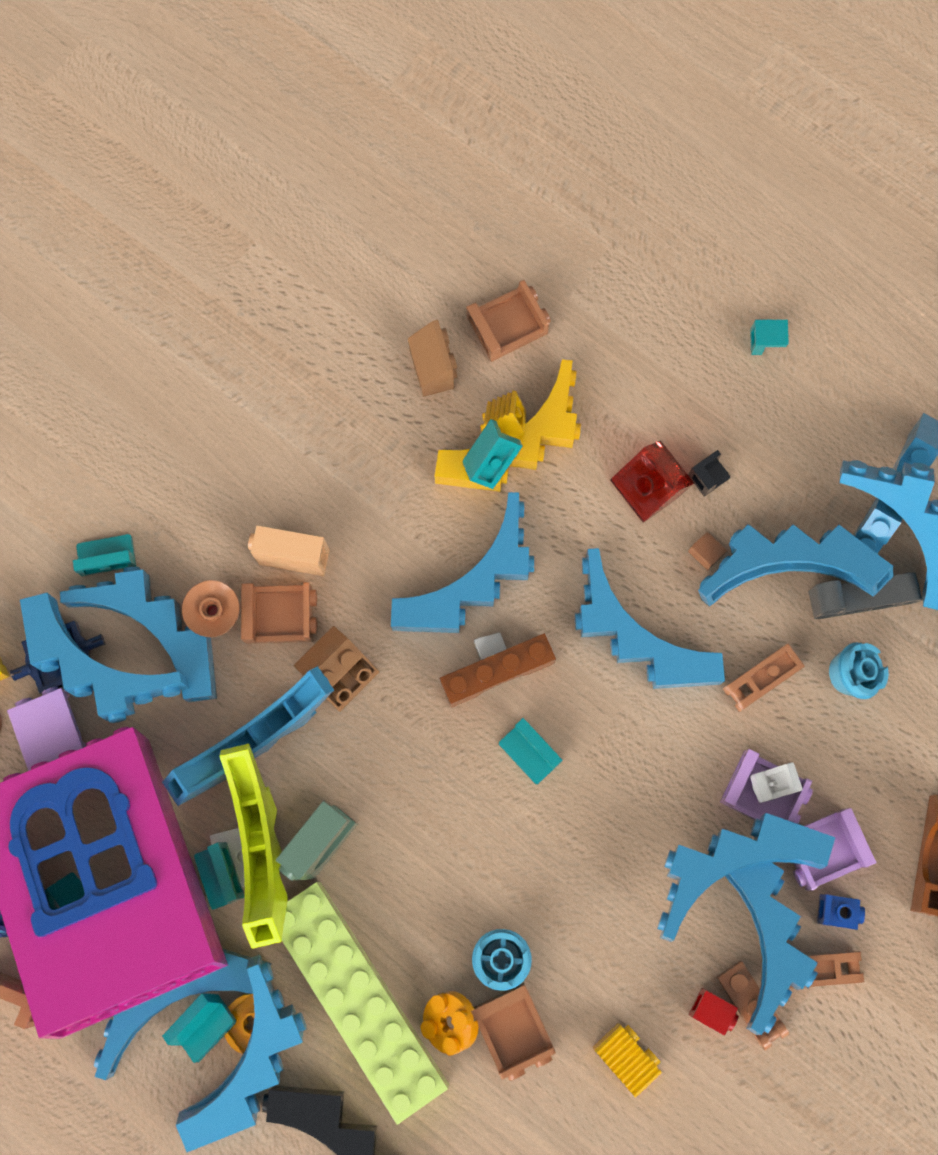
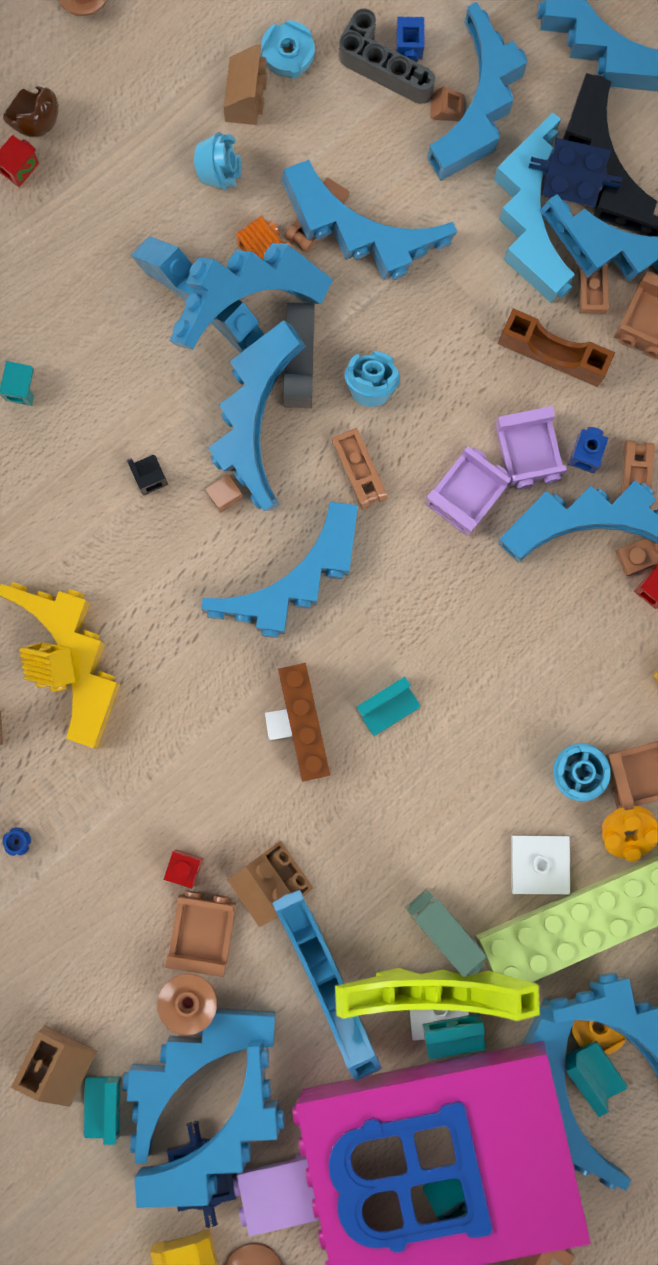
camera: 90 degrees left, 5 degrees up
(135, 502) = (53, 1068): none -> medium nougat slope
(289, 550) = (140, 912): light nougat brick -> none
(330, 422) = (9, 844): none -> blue plate
(336, 583) = (183, 869): none -> red brick
(401, 935) = (540, 864): none -> white plate
(490, 455) = (86, 686): teal panel -> none
(503, 561) = (194, 694): dark azure arch -> none
(651, 480) = (142, 531): clear red slope -> none
(773, 842) = (523, 536): dark azure arch -> none
(776, 782) = (462, 479): white bracket -> none

